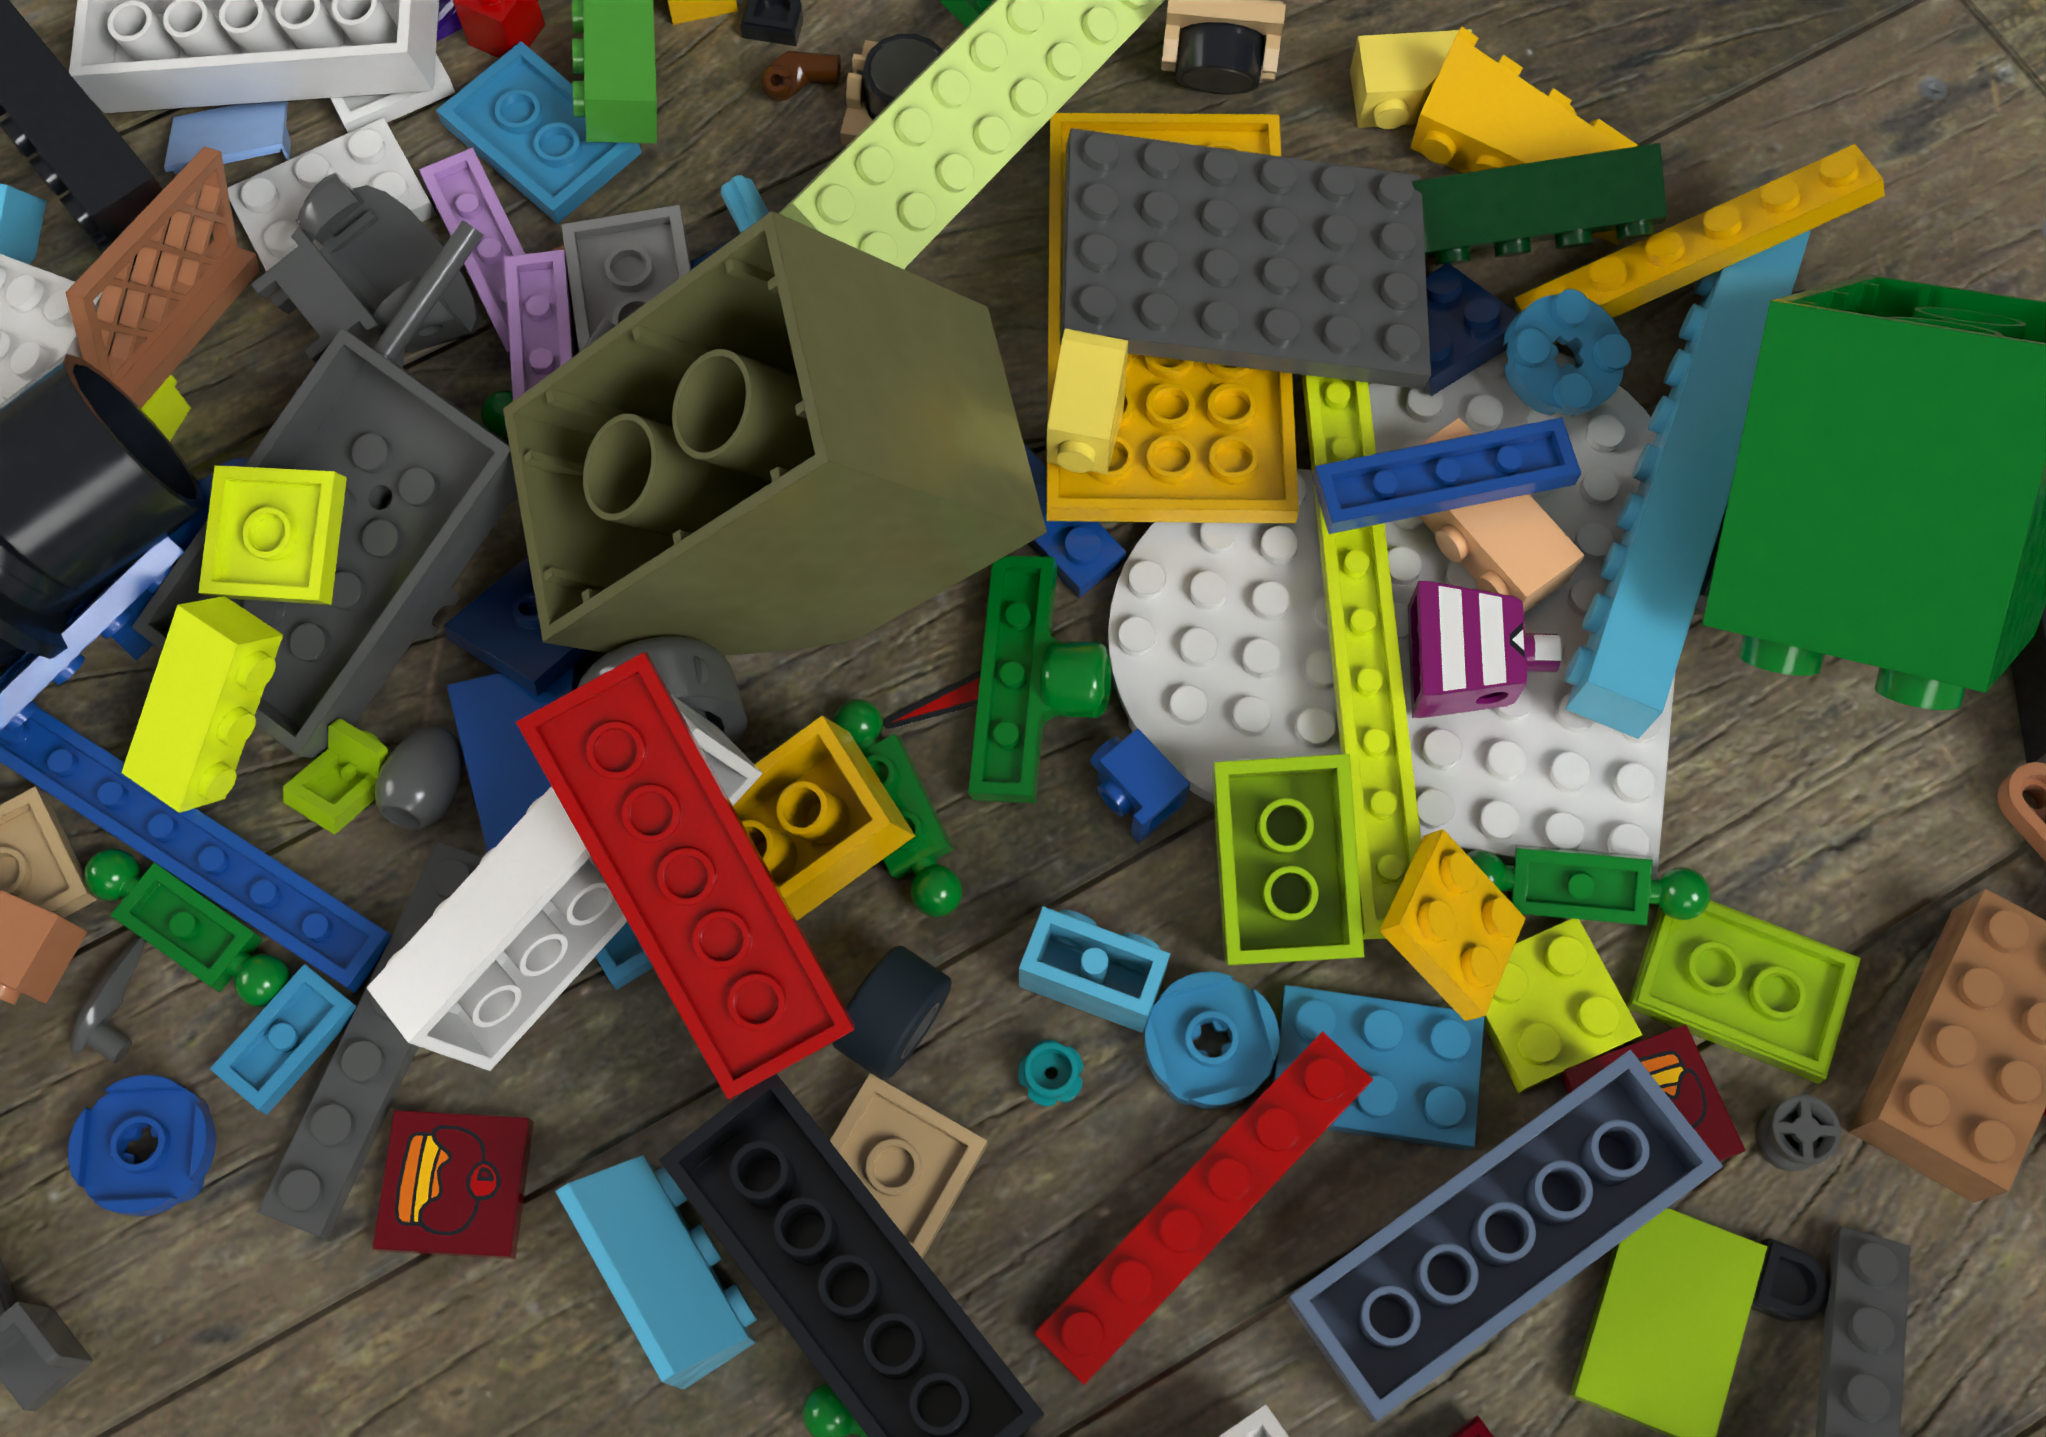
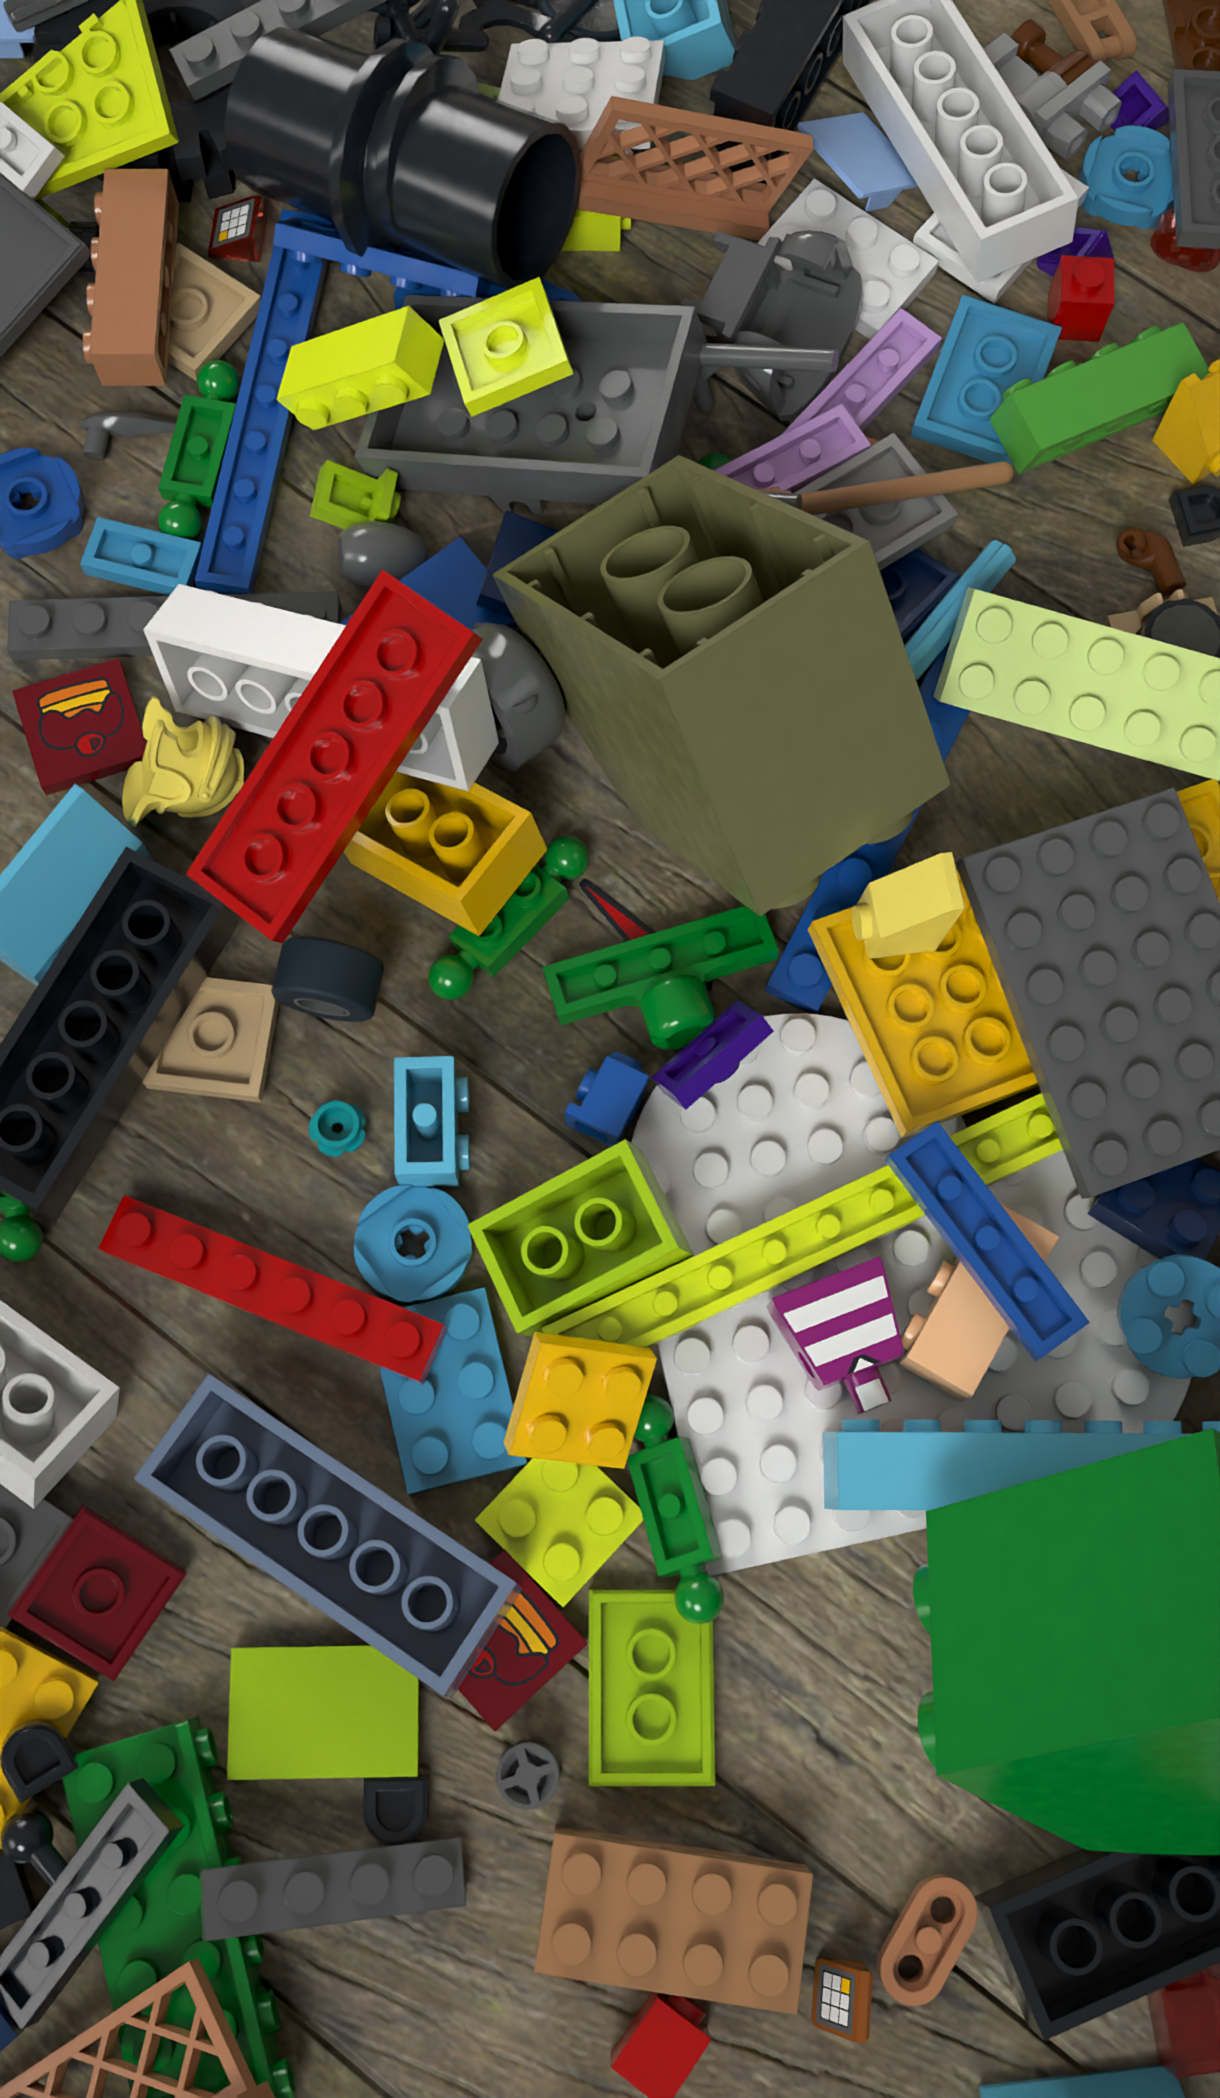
camera: 65 degrees right, 5 degrees up
(566, 1087) = (182, 768): none -> light yellow helmet
(630, 237) = (904, 488): none -> medium nougat piece
(1142, 658) = (712, 1054): none -> dark purple plate

